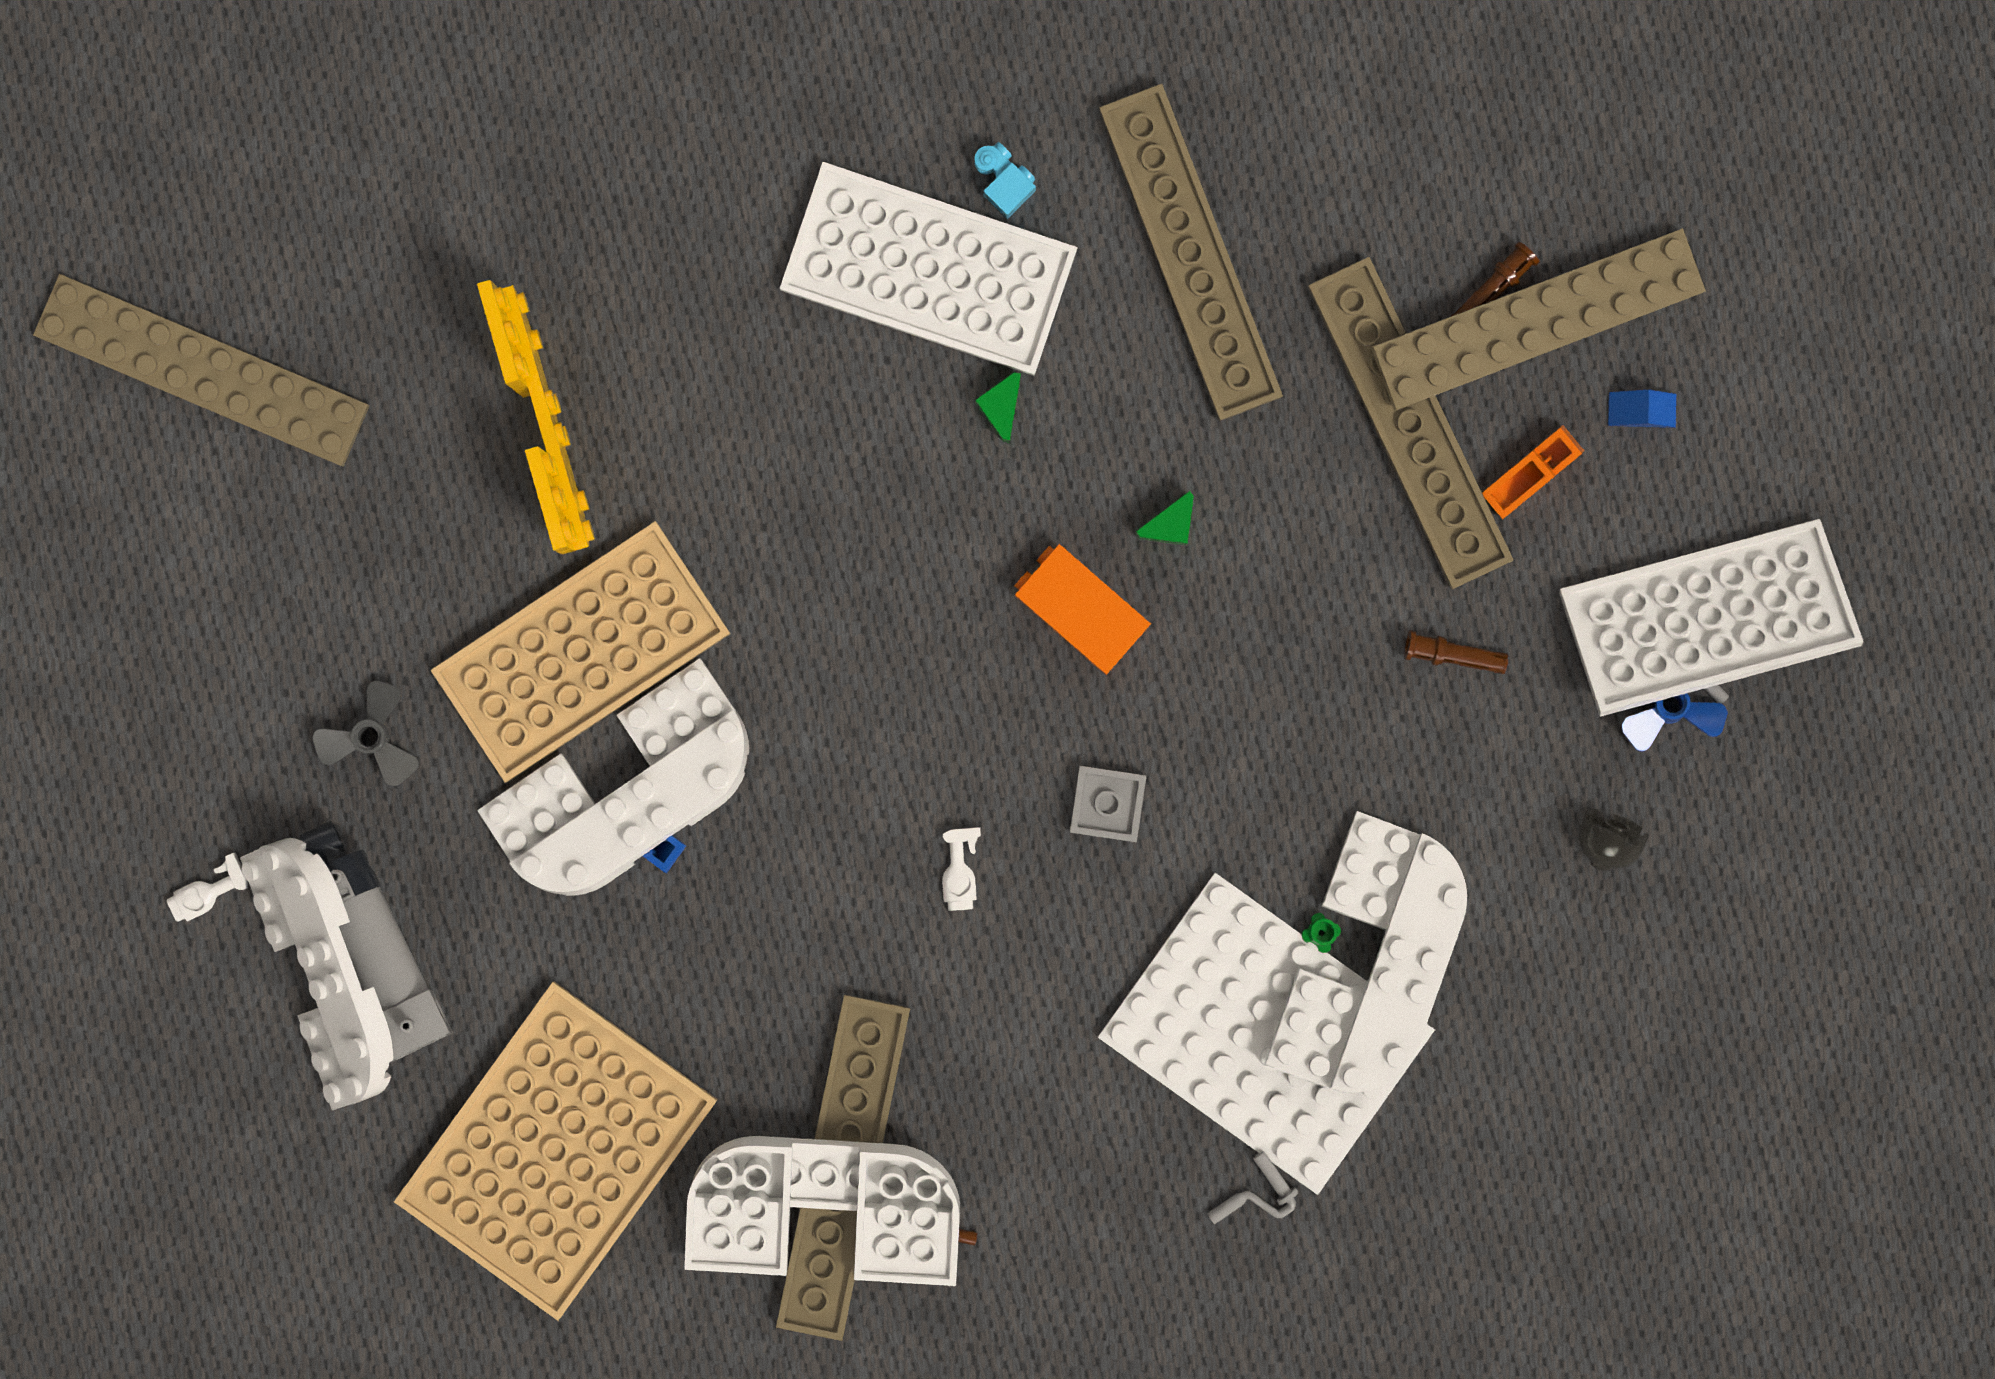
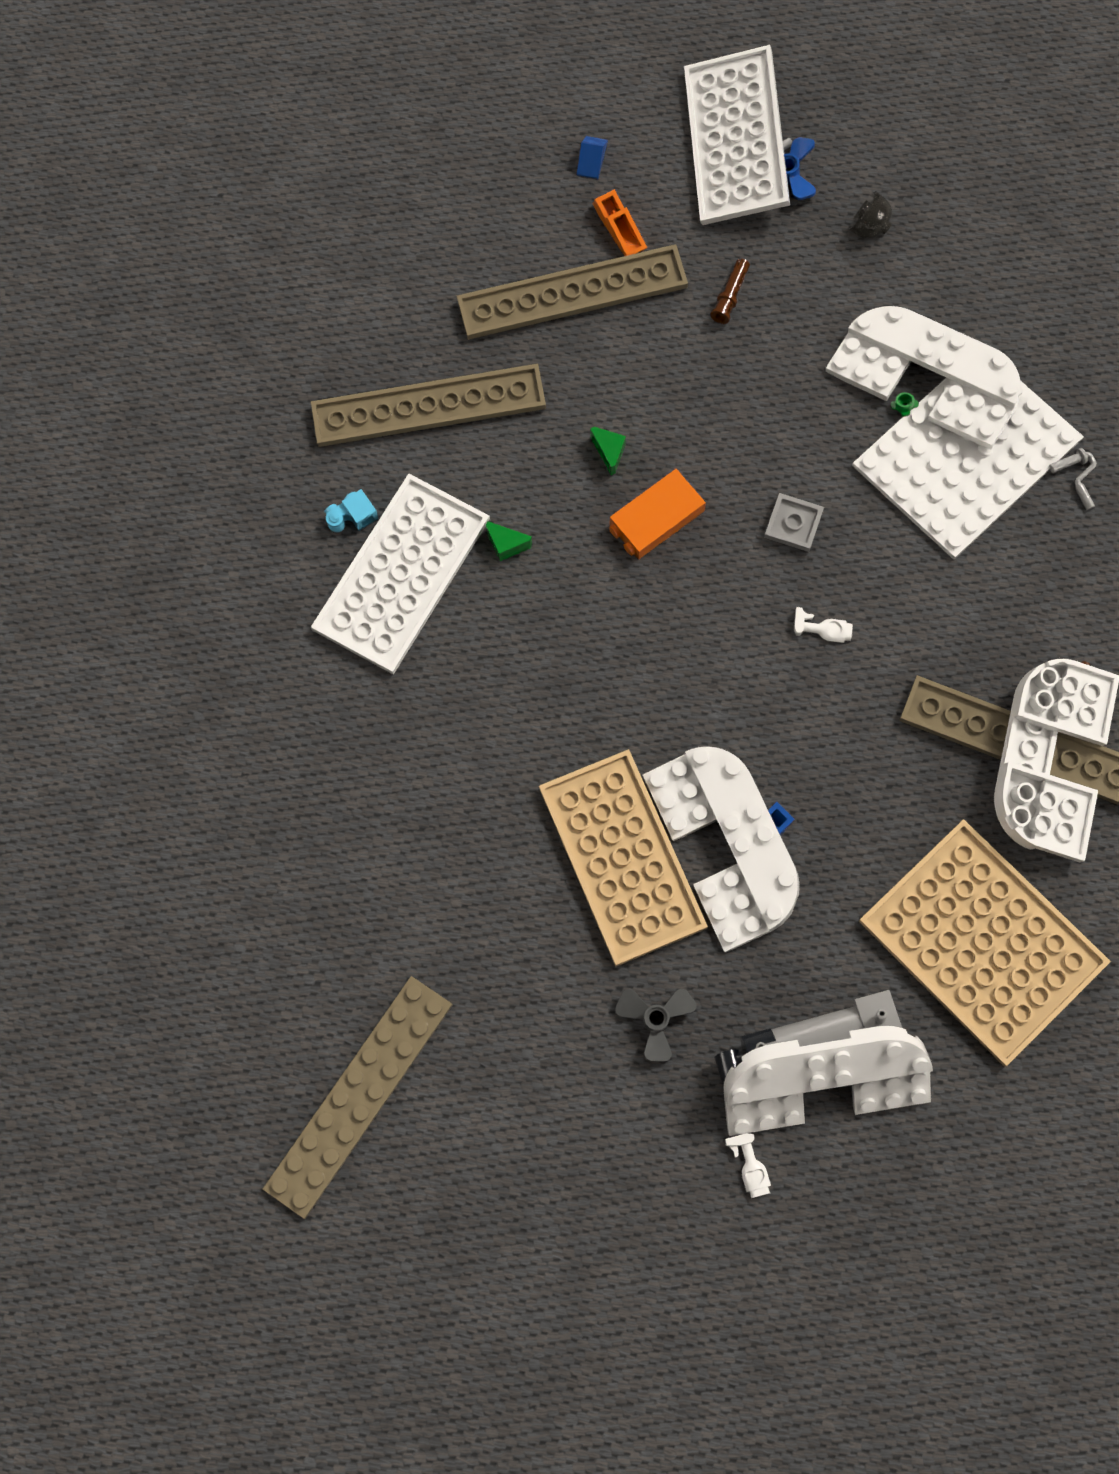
camera: 75 degrees left, 15 degrees down
(523, 372) = (414, 849): yellow plate -> none
(1505, 275) = (487, 219): reddish brown pin -> none
(1538, 319) = (521, 205): dark tan plate -> none

